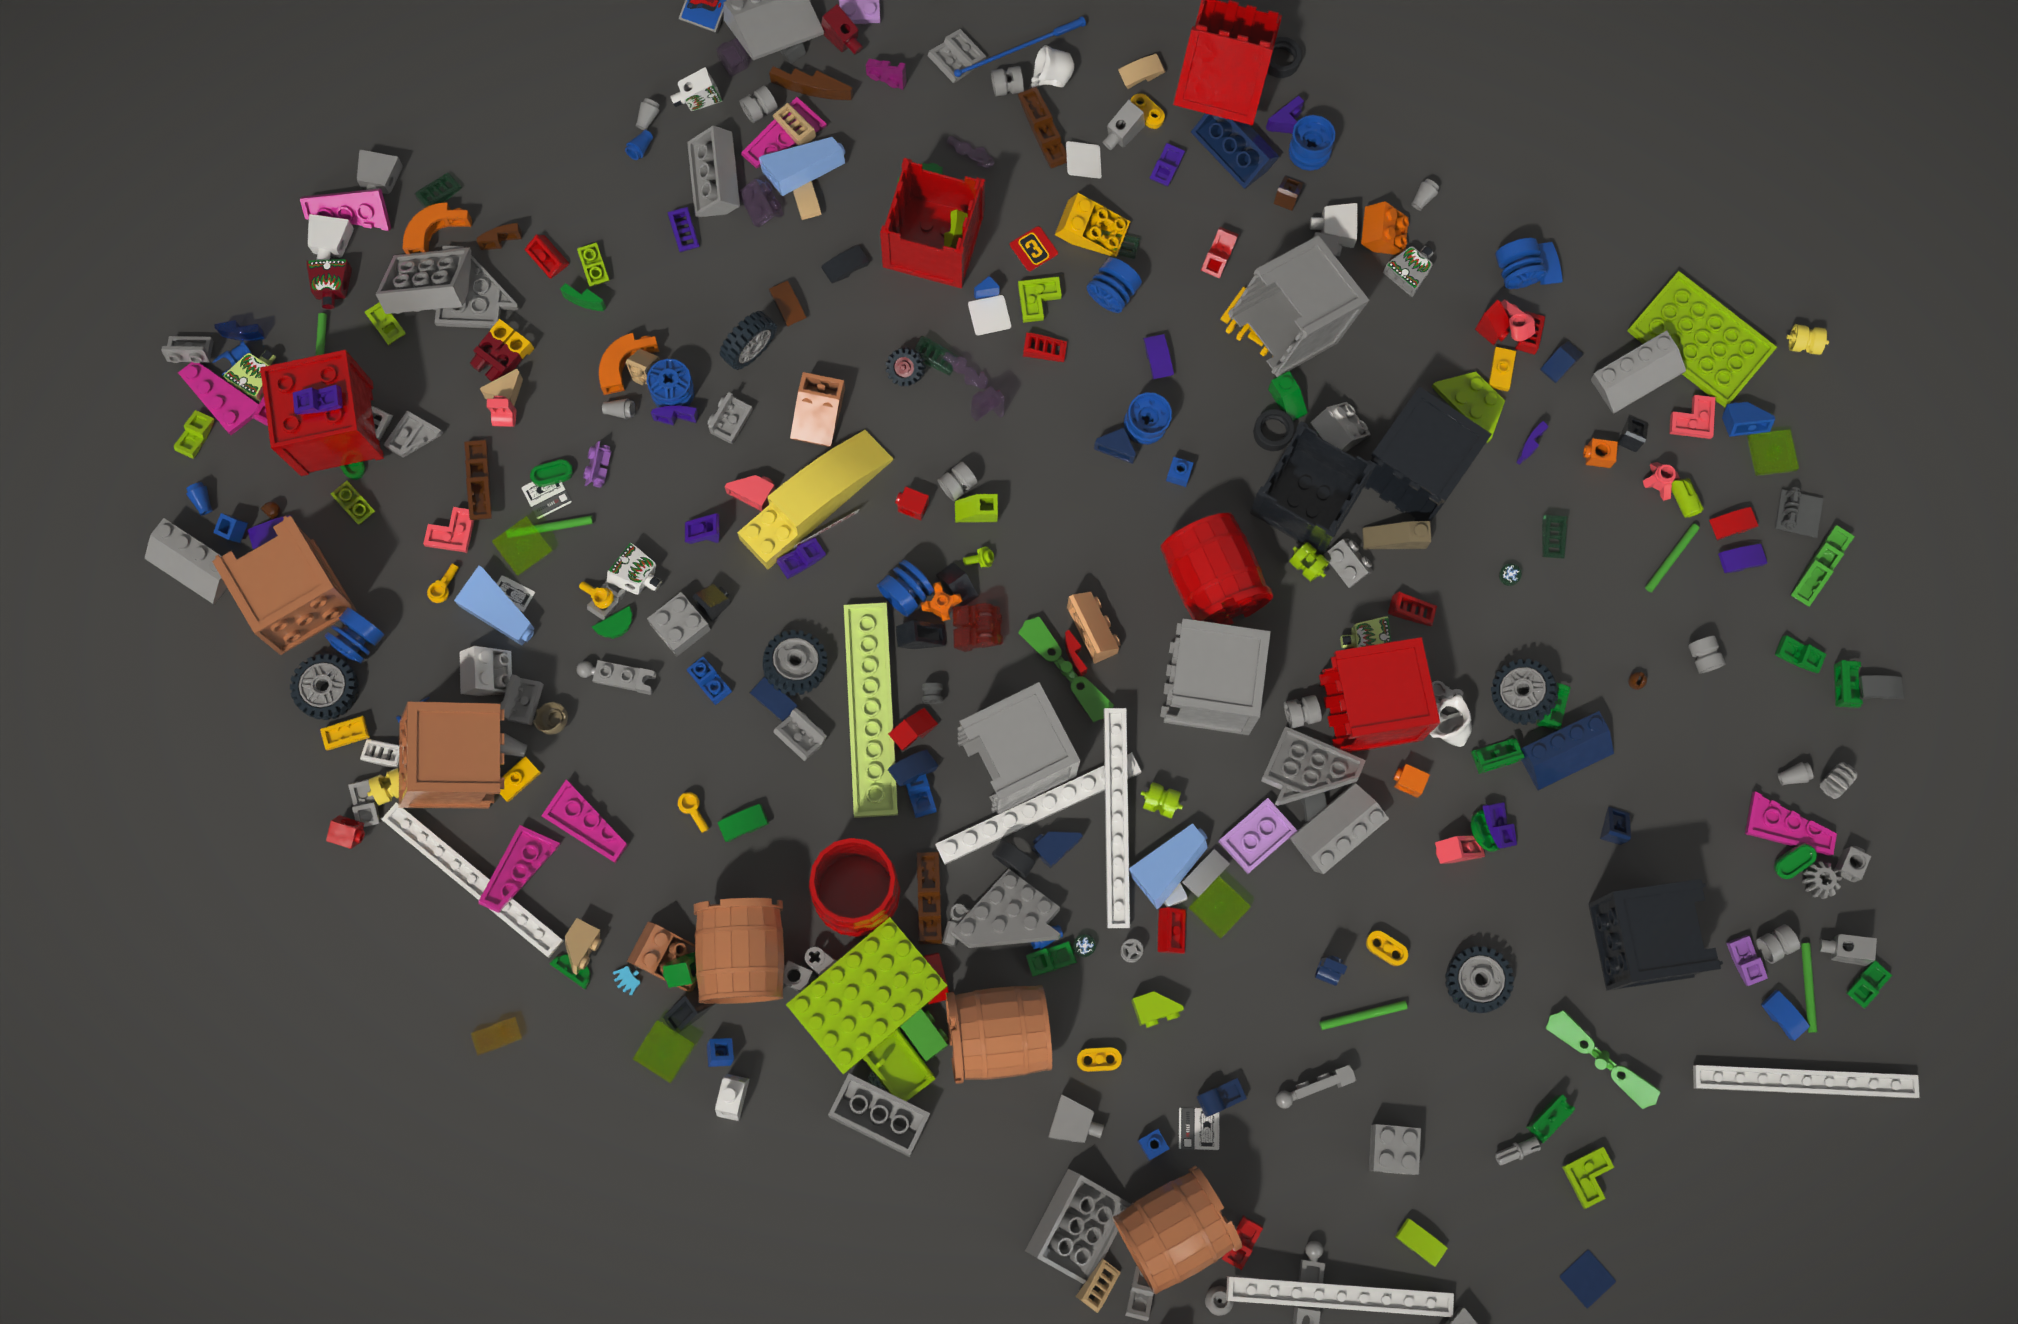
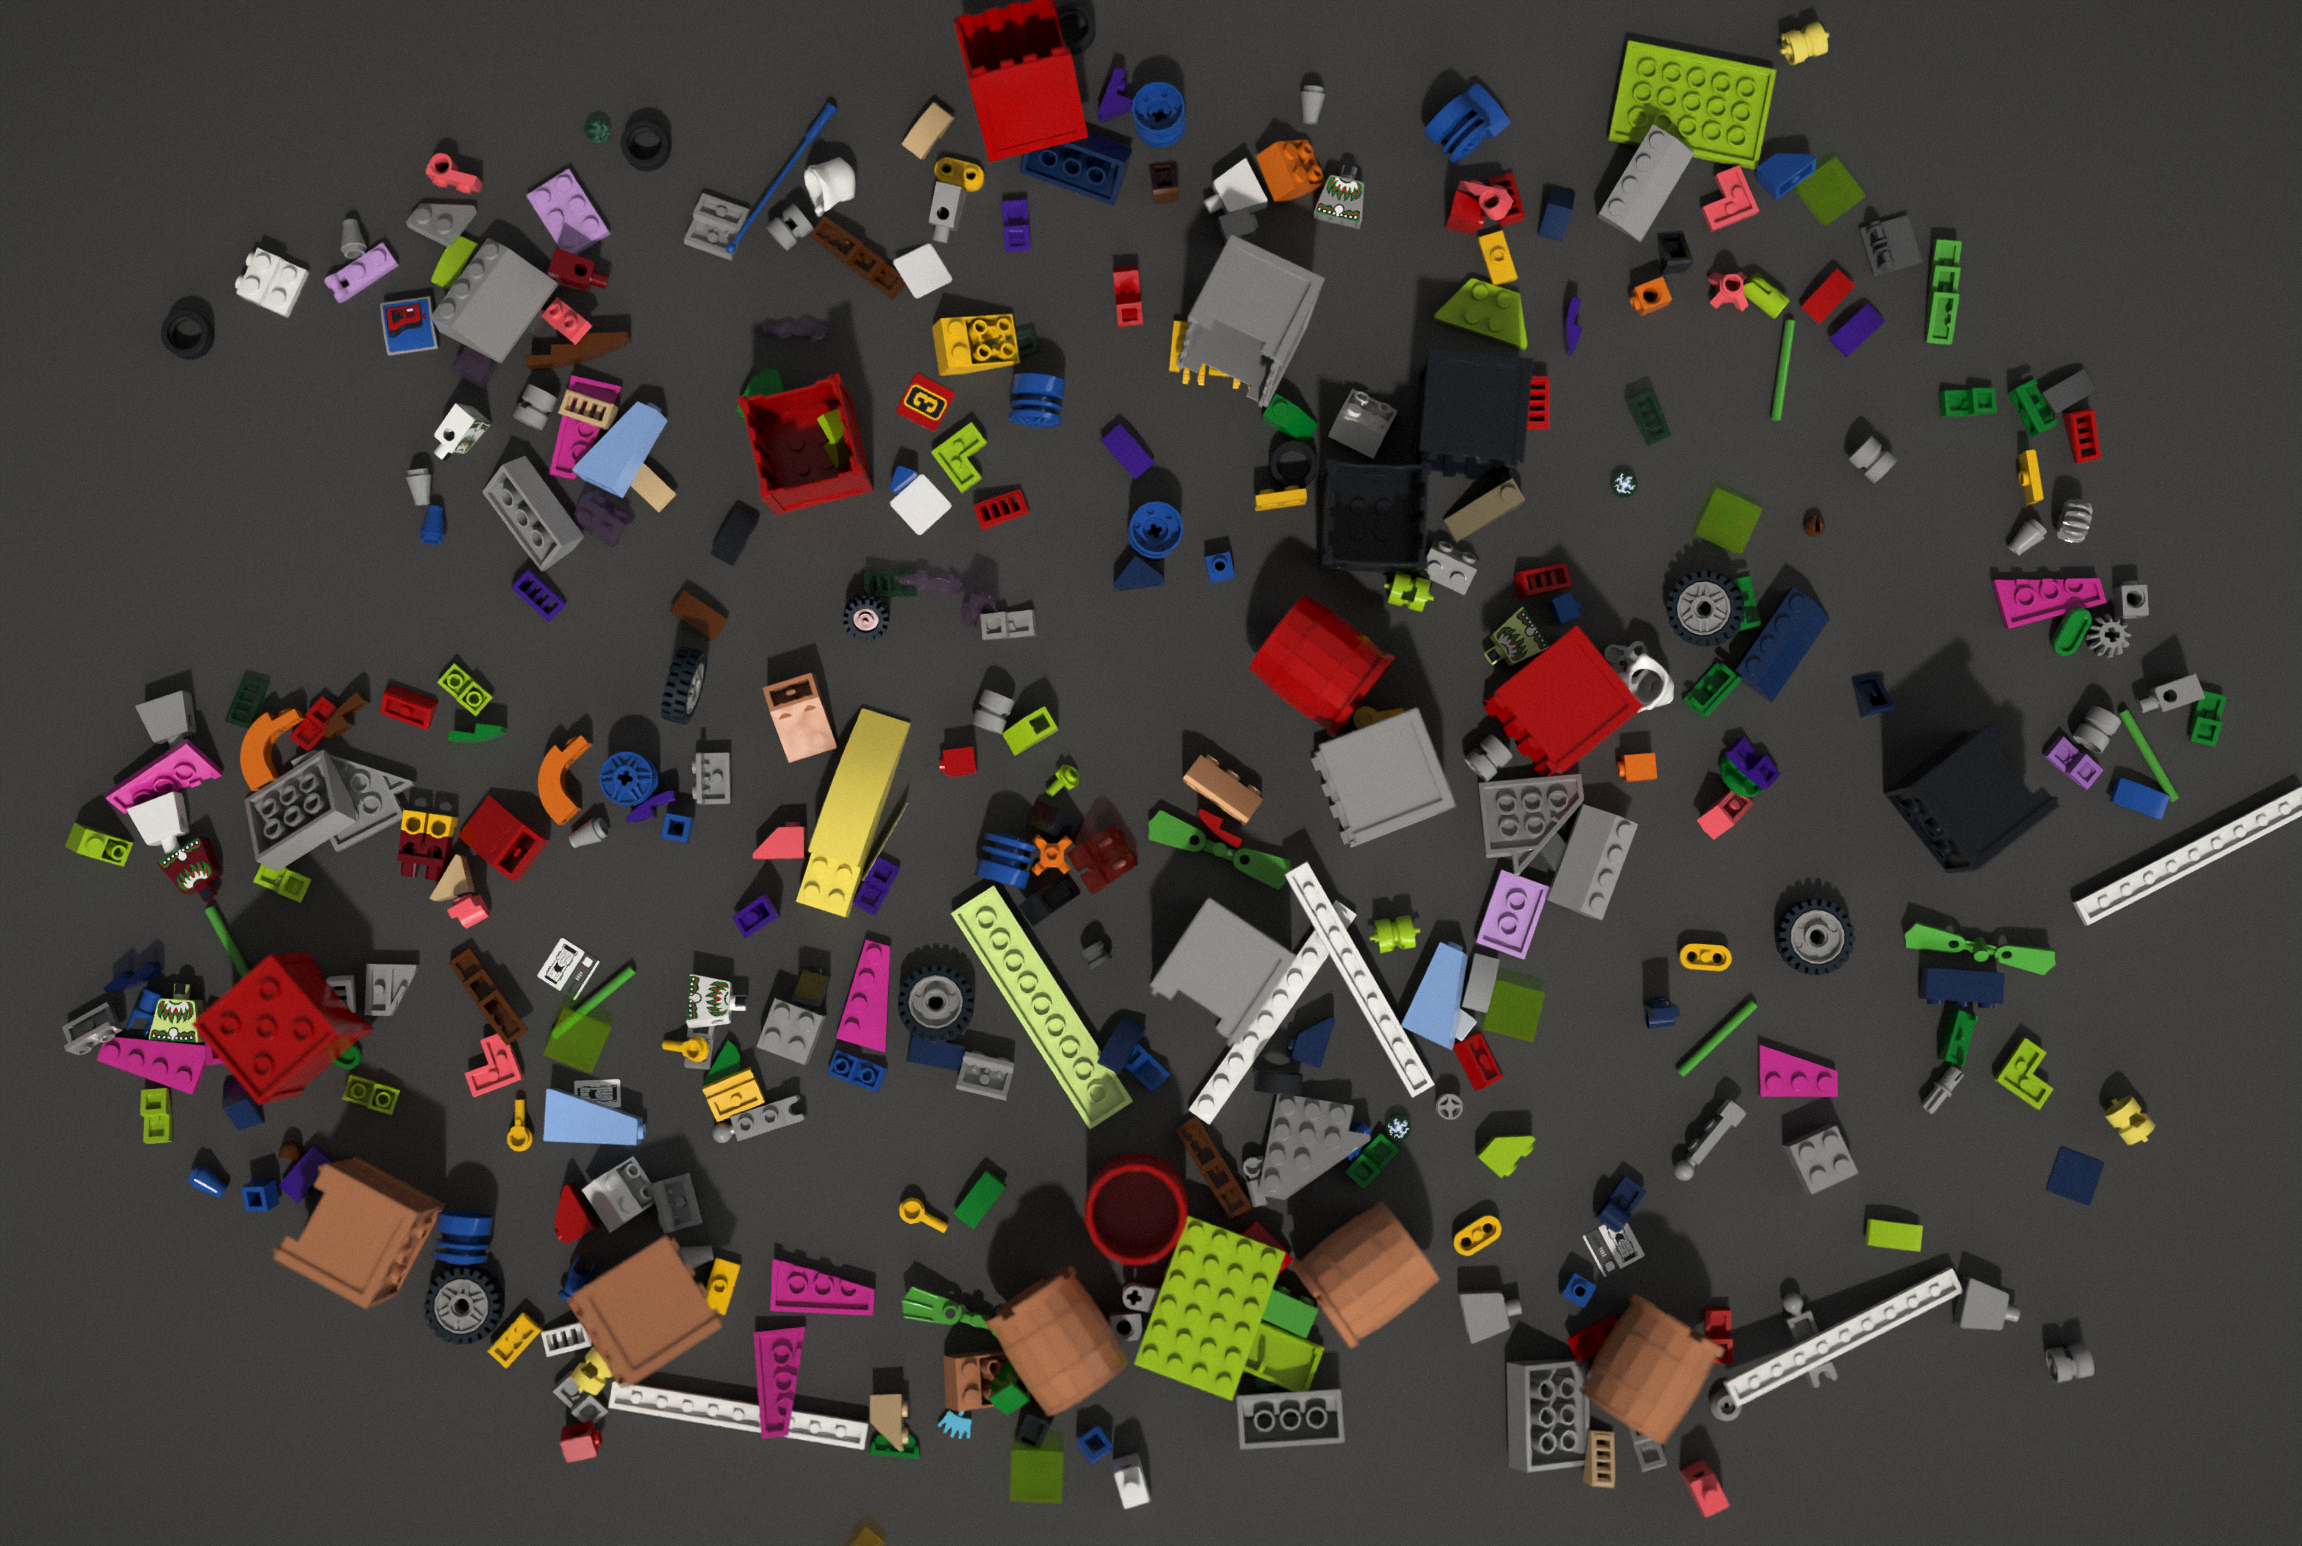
camera: 20 degrees left, 10 degrees up
(185, 560) = (236, 1253): light grey slope -> none
(258, 459) = (240, 1105): none -> dark blue slope
(275, 229) = (98, 844): none -> lime slope
(317, 401) = (276, 1027): dark purple slope -> none
(441, 667) = (573, 1216): none -> red slope
(467, 235) = (310, 731): none -> red slope
(551, 473) = (560, 943): green tile -> none
(551, 718) = (718, 1205): dark tan hair -> none
(557, 379) = (503, 839): none -> red slope
(594, 472) = (604, 917): medium lavender hinge -> none
(609, 646) = (733, 1094): none -> yellow plate
(640, 364) = (585, 774): tan slope -> none
(660, 880) = (929, 1307): none -> bright green piece
(684, 432) = (669, 828): none -> blue plate
(743, 639) = (867, 1005): none -> dark pink wing
(814, 58) = (566, 321): none -> coral plate
(882, 71) = (646, 292): magenta wing -> none
(912, 728) = (1098, 1003): red slope -> none
(1003, 430) = (1008, 625): none -> light grey slope
(1137, 1188) = (1590, 1339): none -> red slope
(1251, 447) = (1290, 497): none -> yellow plate
(1407, 1077) = (1793, 1077): none -> dark pink wing
(1420, 630) = (1565, 608): none -> blue plate
(1484, 467) = (1545, 392): none -> red slope
(1573, 1080) = (1961, 987): none -> dark blue brick
(1574, 642) = (1728, 521): none -> clear neon green plate
(1653, 1256) = (2131, 1123): none -> light yellow wheel
(1820, 732) = (2030, 477): none -> yellow plate
(1884, 726) = (2091, 432): none -> red slope

